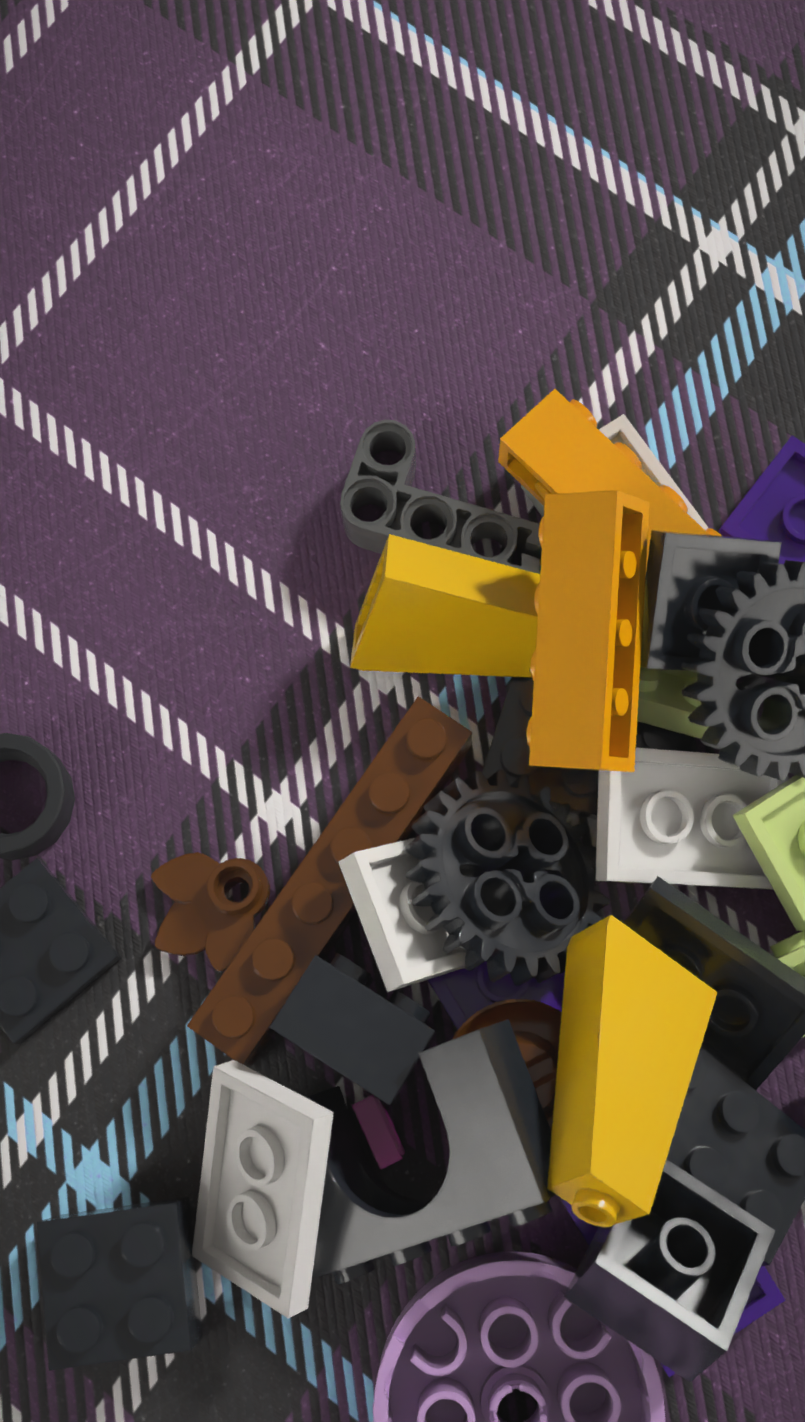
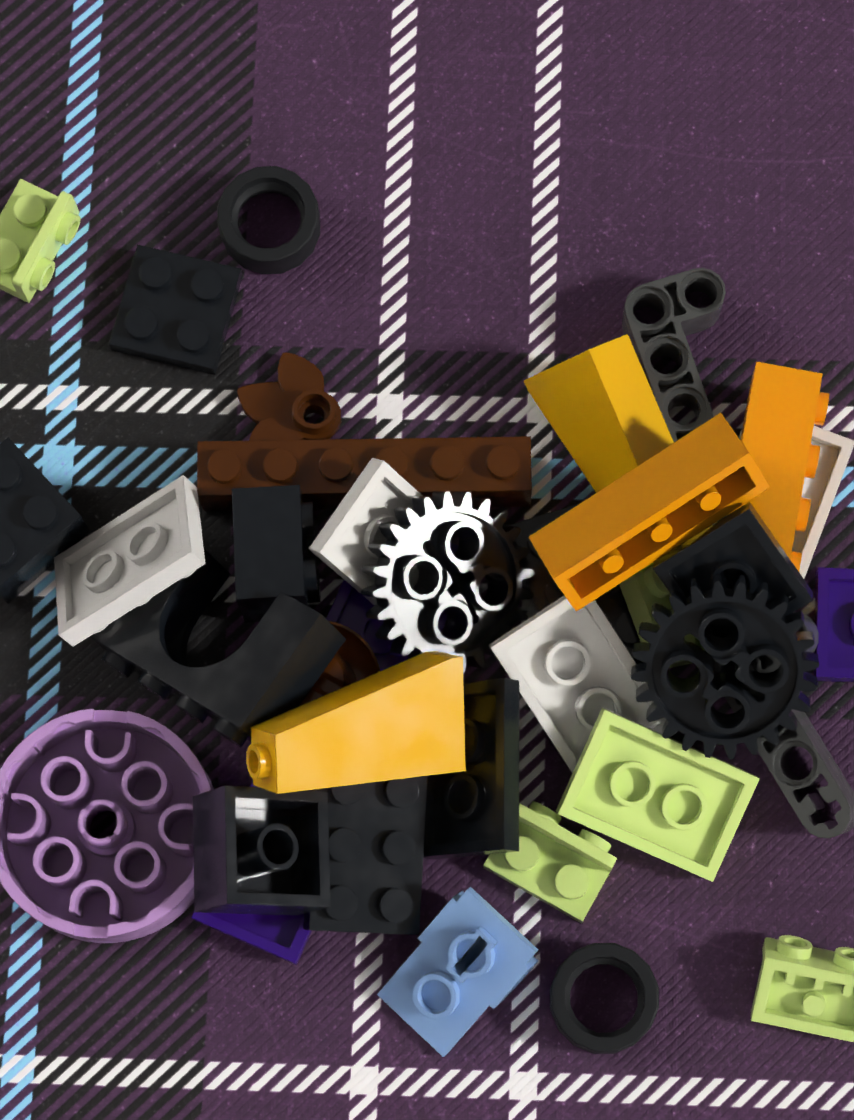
camera: 55 degrees right, 0 degrees up
(379, 1131) = (218, 621): magenta tile -> none

